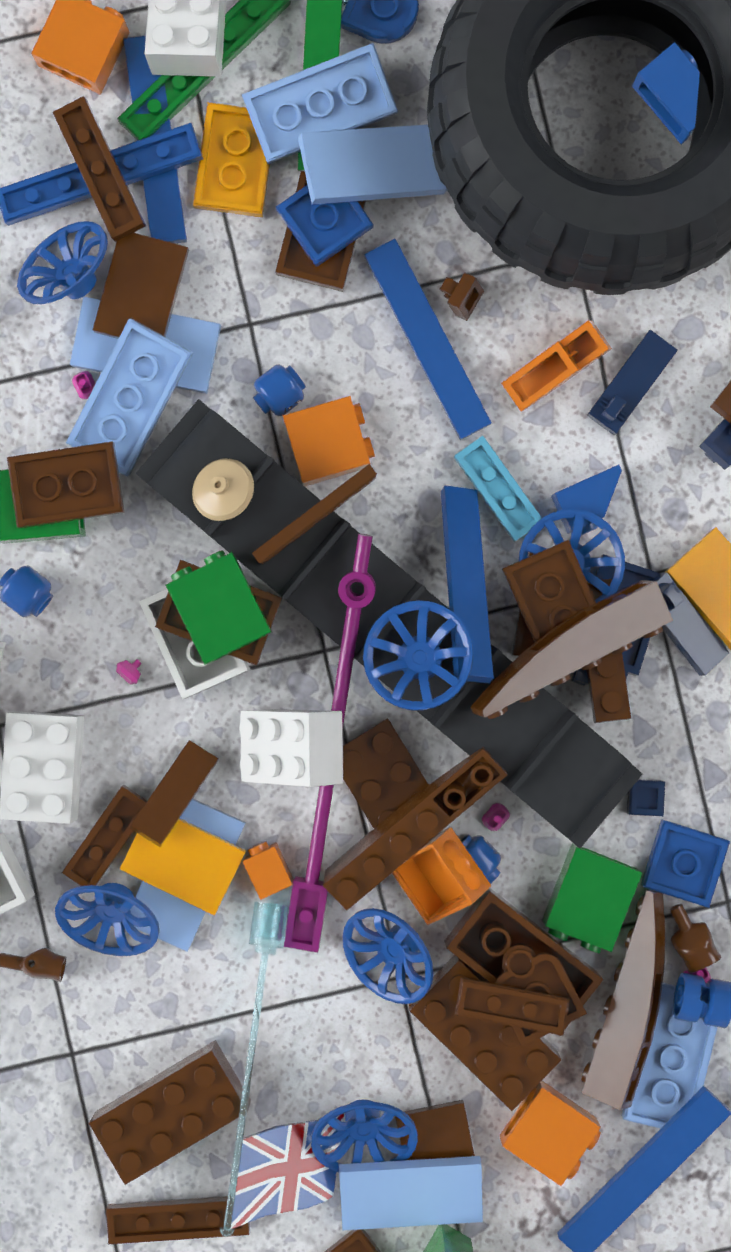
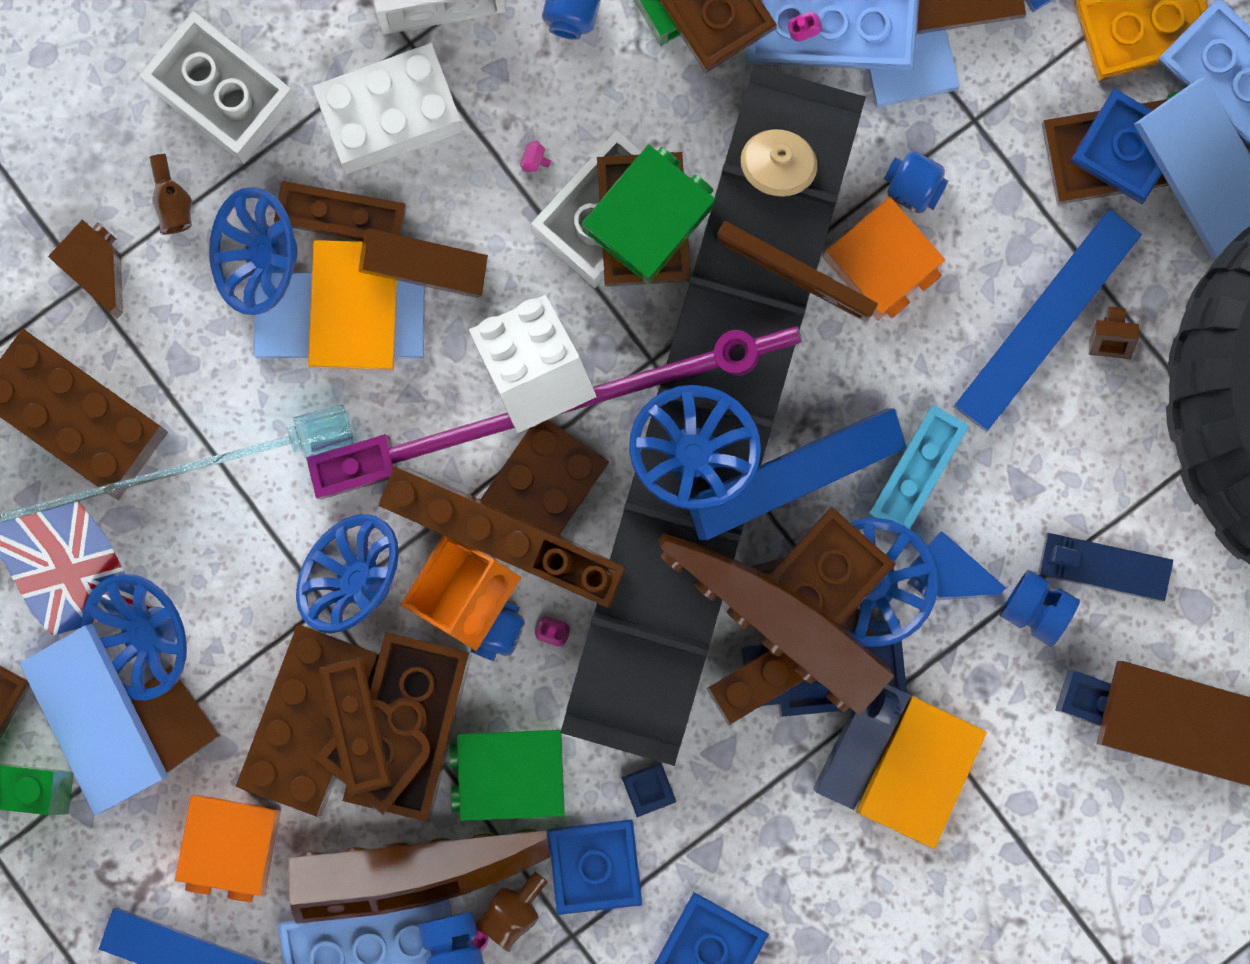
camera: 70 degrees right, 5 degrees down
(62, 1044) = (93, 263): none -> reddish brown slope
(121, 420) = (804, 26): none -> dark pink rock
(267, 869) = (383, 402): orange brick -> none
(556, 365) = (1085, 474): orange slope -> none
(647, 443) = (1040, 608): none -> blue wheel

